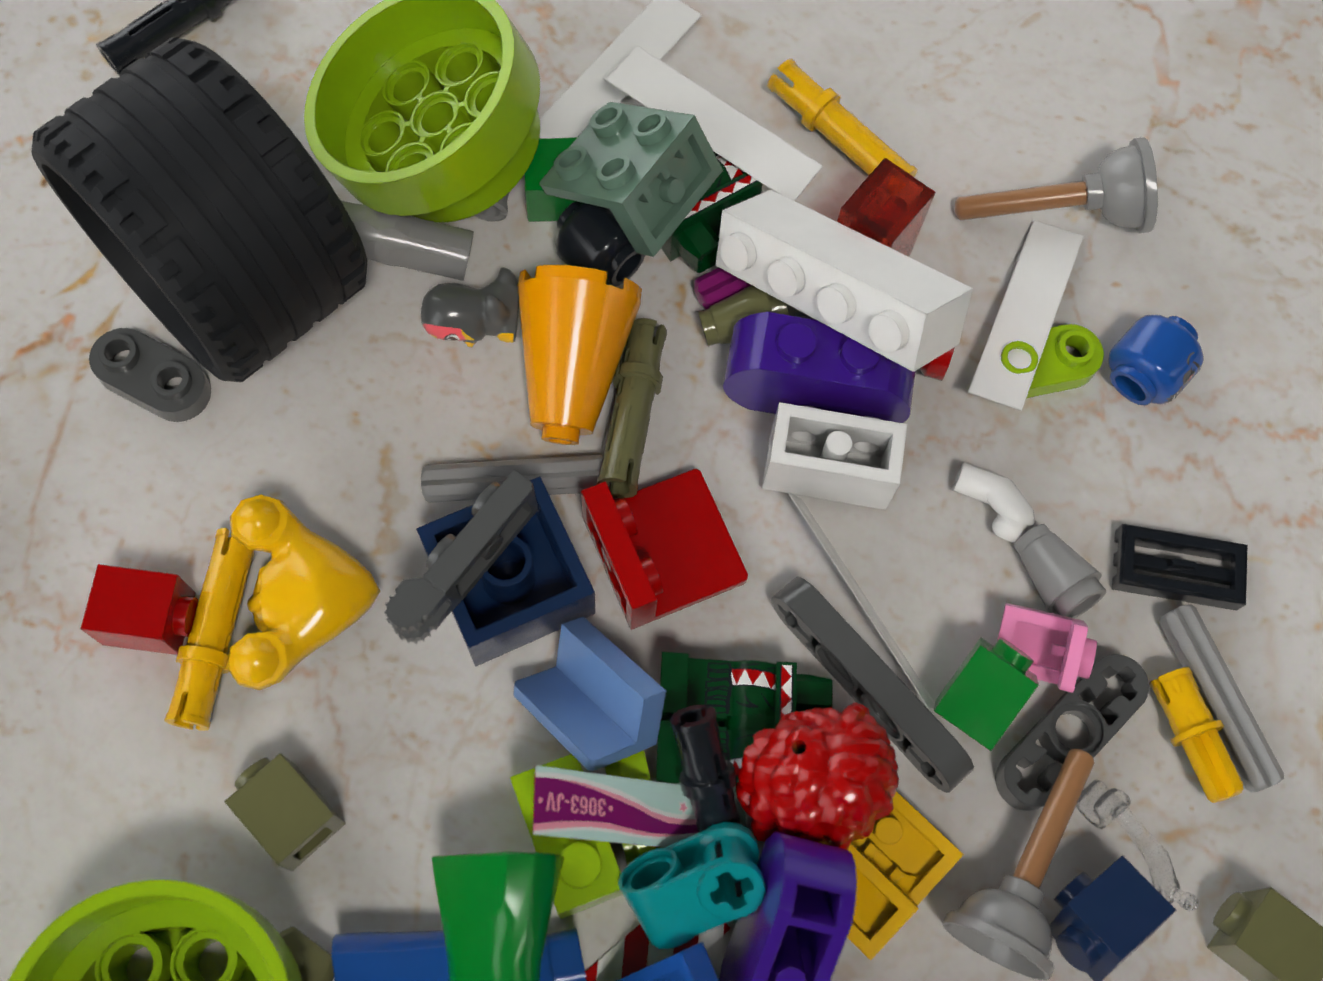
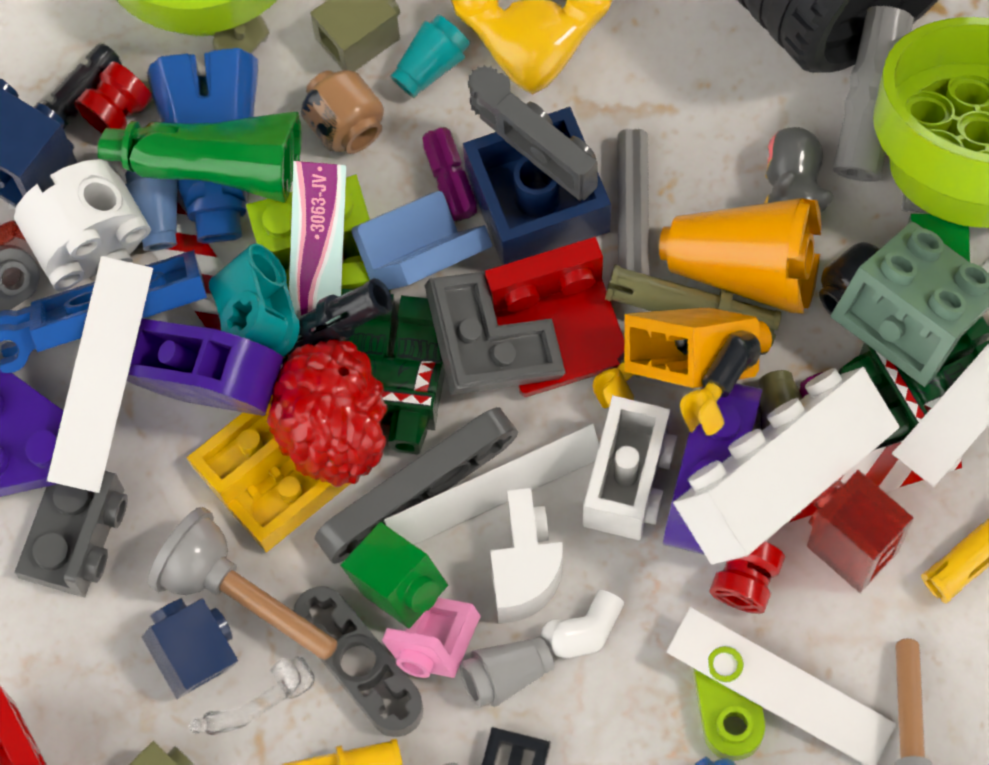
camera: 105 degrees right, 0 degrees up
(326, 717) = (430, 55): none -> teal cone
(404, 818) = (342, 111): none -> medium nougat head
(466, 689) = (449, 174): none -> magenta piece
(709, 381) = (690, 350): none -> light orange torso
(717, 617) = (480, 352): none -> dark grey tile
(951, 552) = (528, 572): none -> white brick

